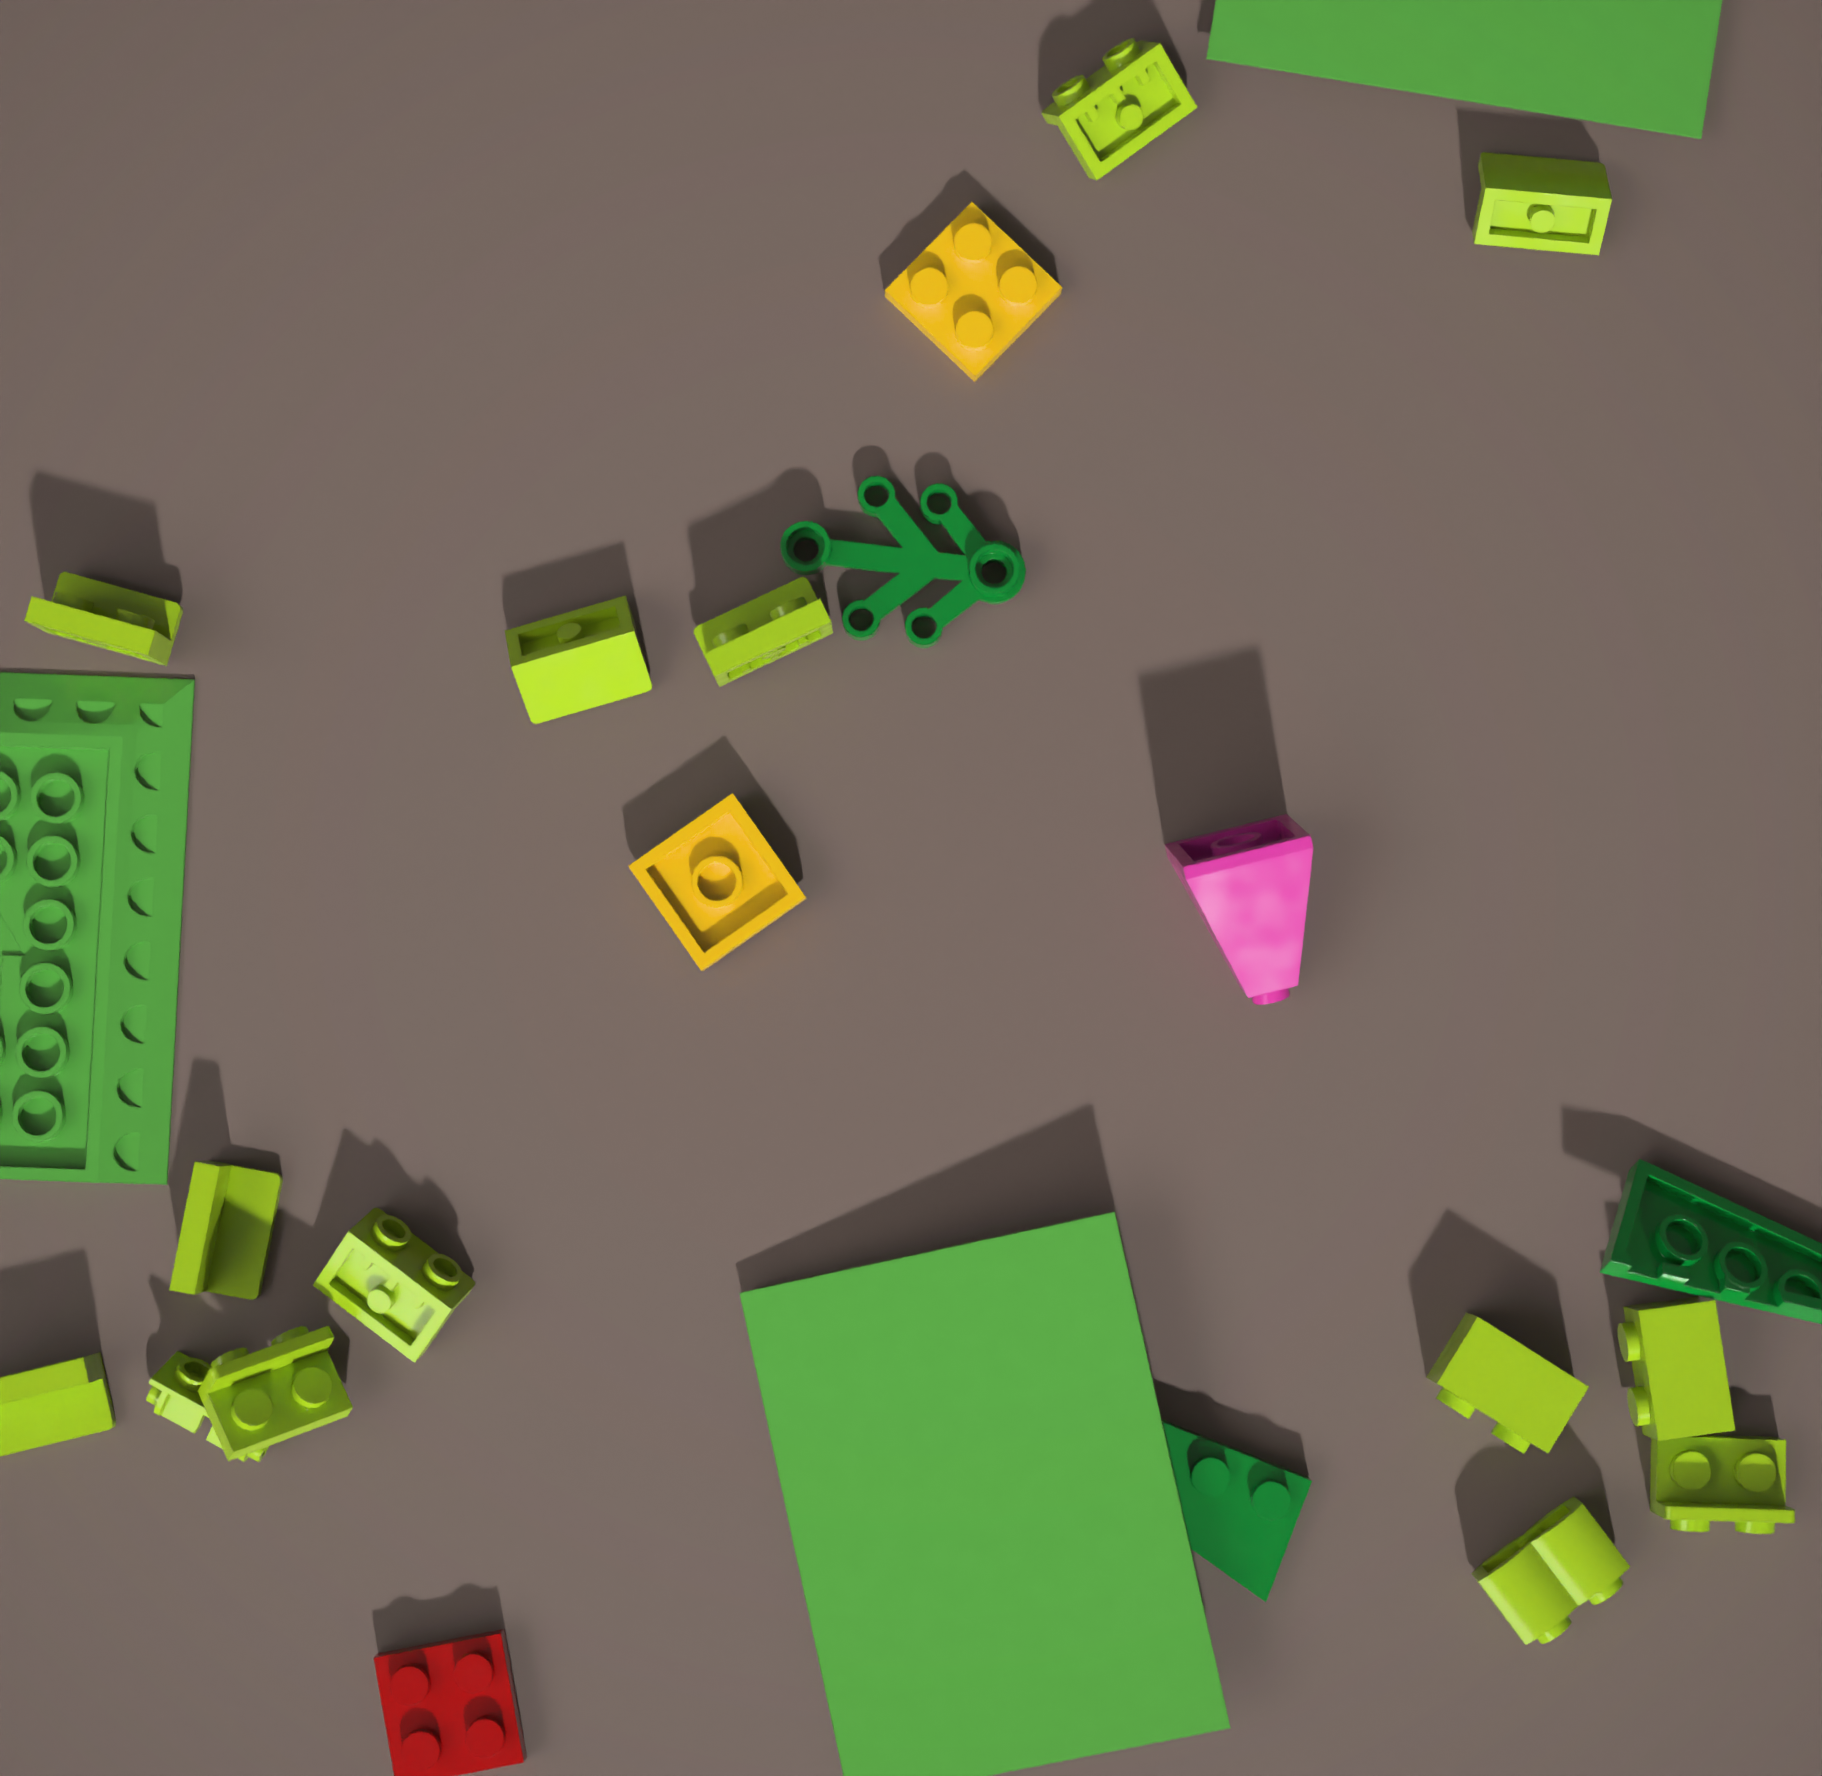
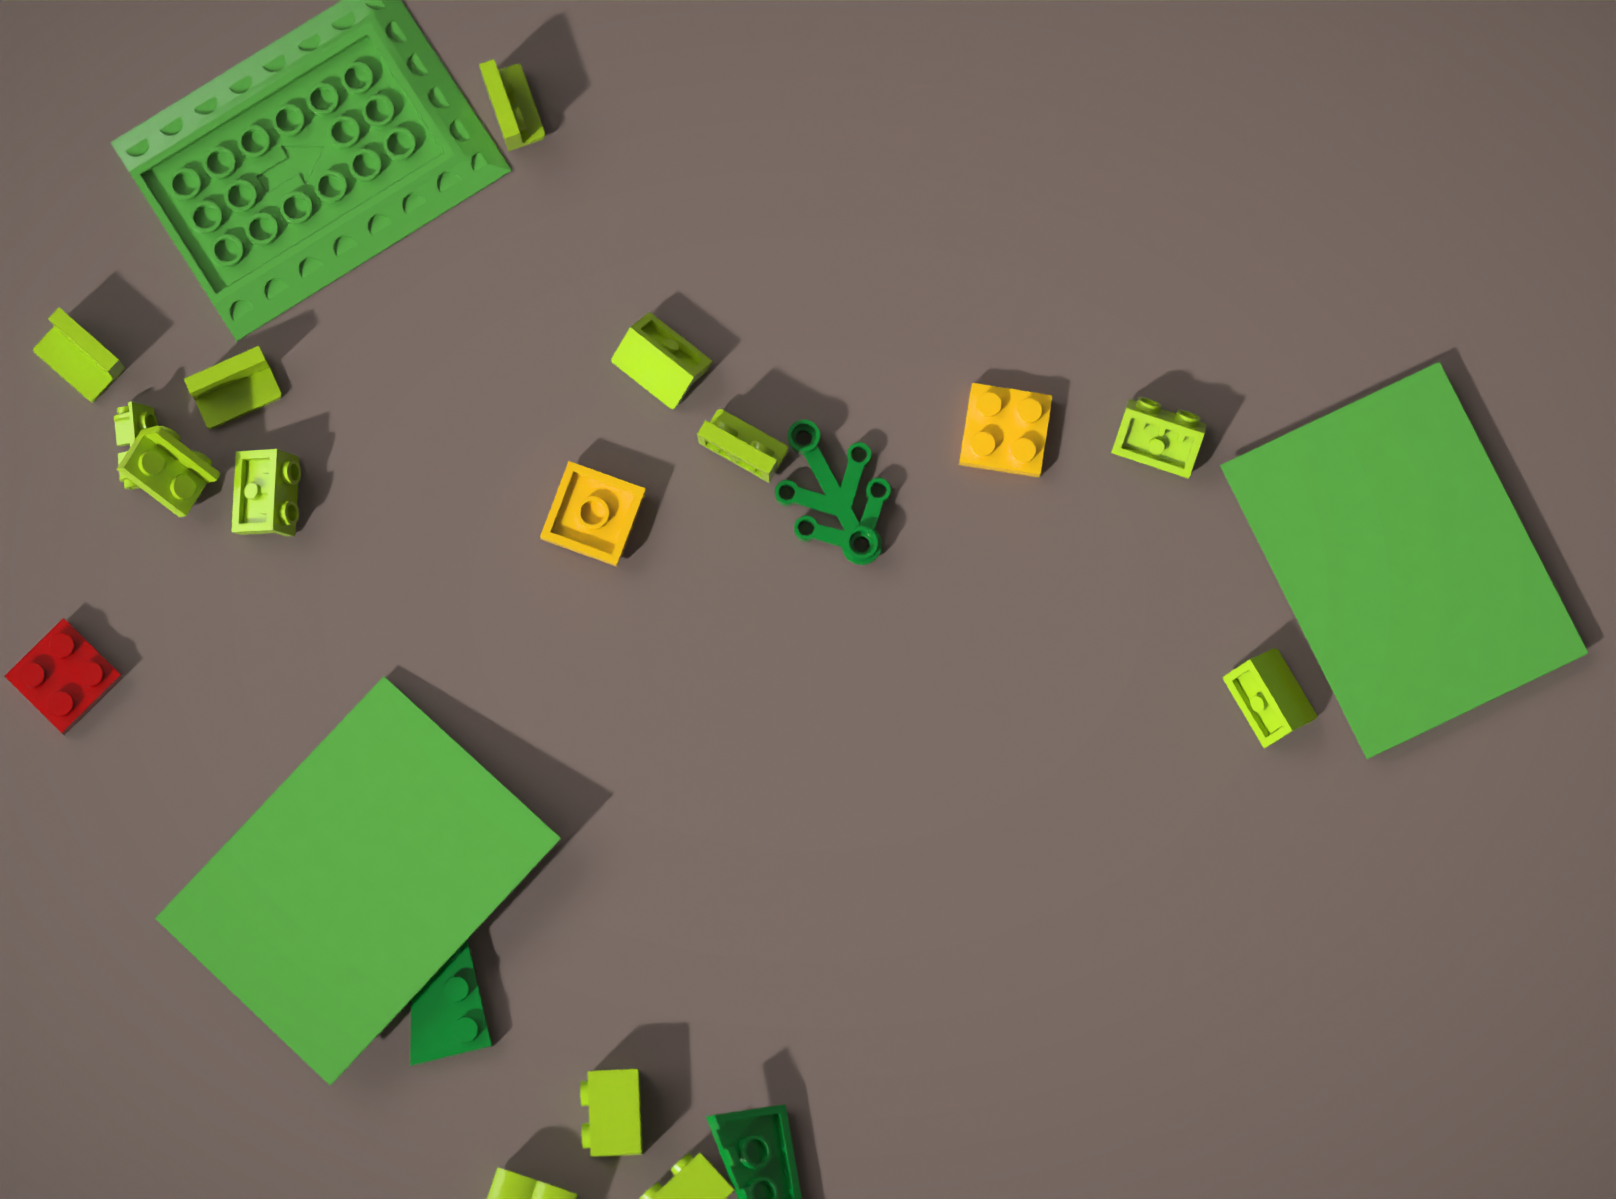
camera: 55 degrees right, 5 degrees down
(1252, 899) = (776, 796): slope -> none

